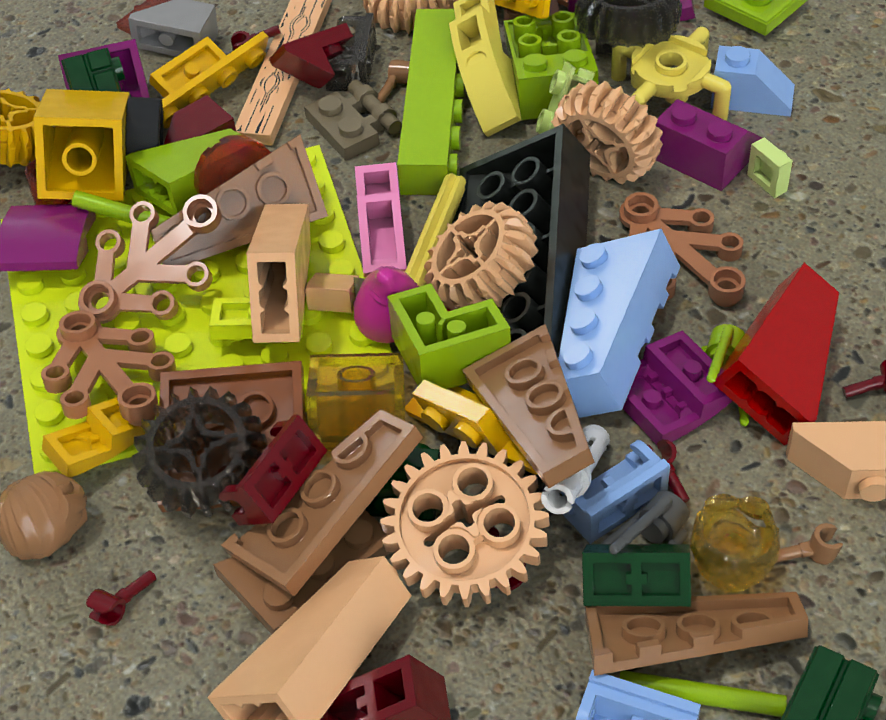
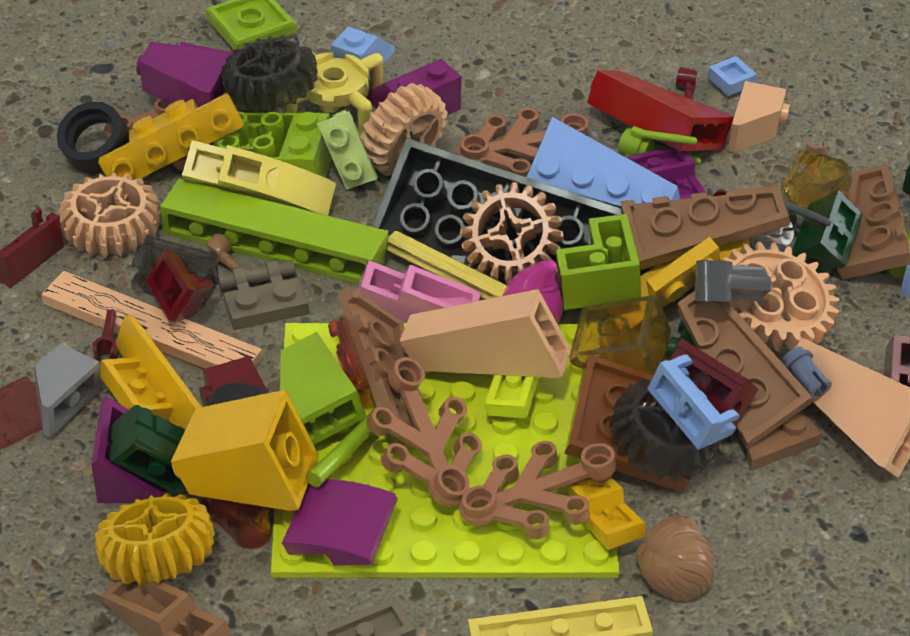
camera: 80 degrees left, 5 degrees down
(110, 608) = (770, 532): dark red hand -> none
(205, 449) = (689, 405): none -> light blue hinge
(324, 572) = (802, 367): none -> sand blue pin
(392, 426) = (727, 282): none -> dark grey piece
(769, 167) = (468, 66): yellowish green plate -> none

